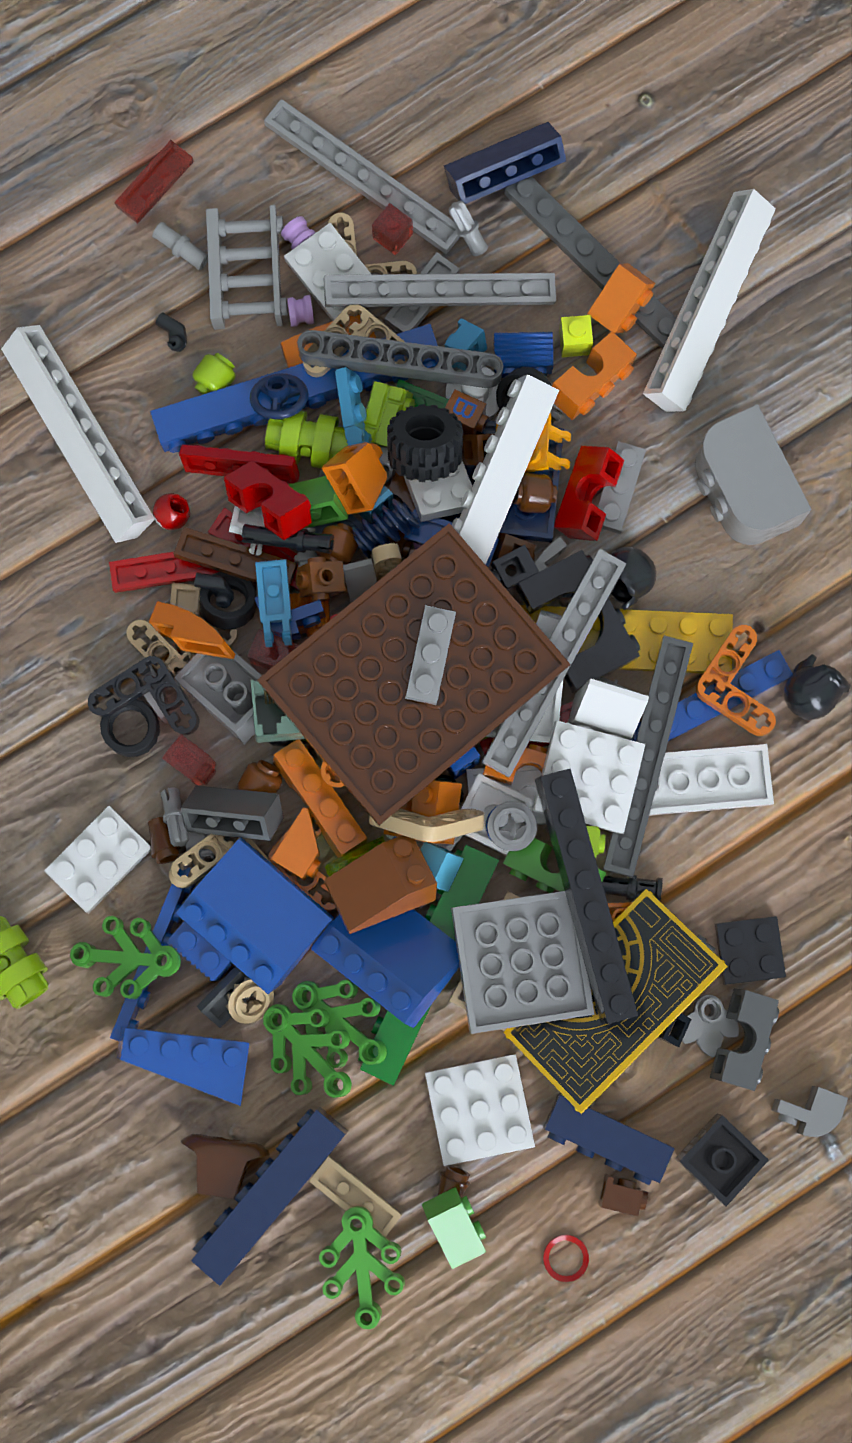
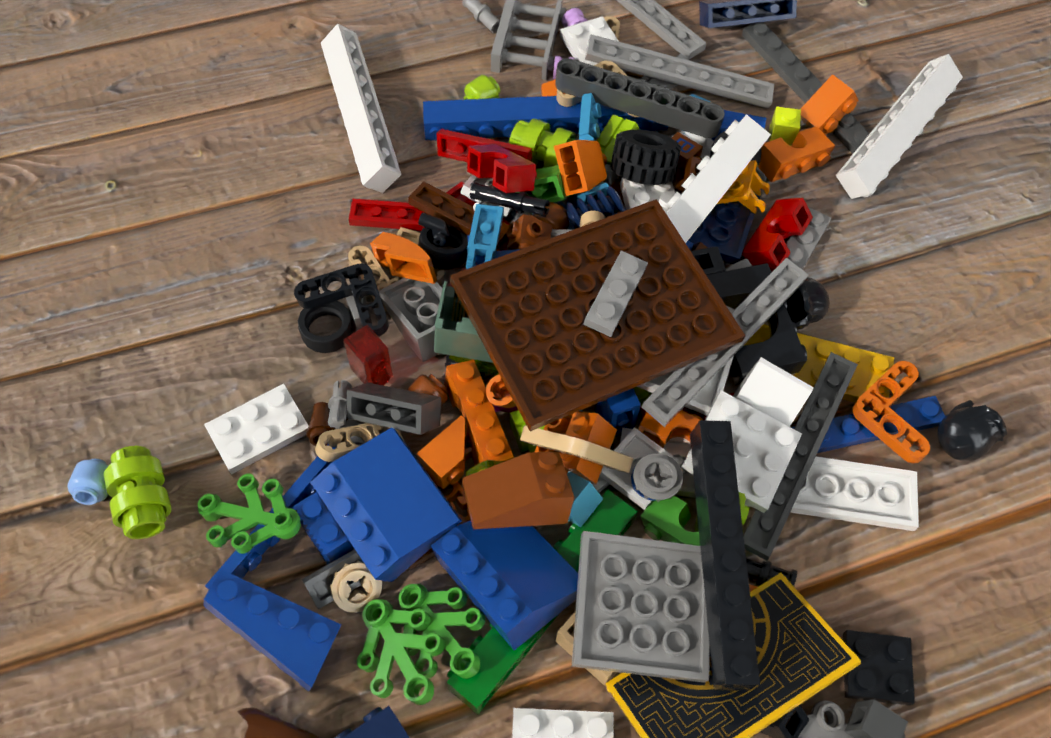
camera: 10 degrees right, 20 degrees down
(171, 511) = (416, 172): red piece -> none
(175, 330) = (460, 63): black arm -> none
(279, 391) = (531, 101): dark blue piece -> none
(392, 229) = (650, 31): clear red brick -> none
(468, 228) = (710, 39): light grey axle -> none
(535, 493) = (730, 218): reddish brown head -> none
(749, 479) = (924, 253): light grey brick -> none

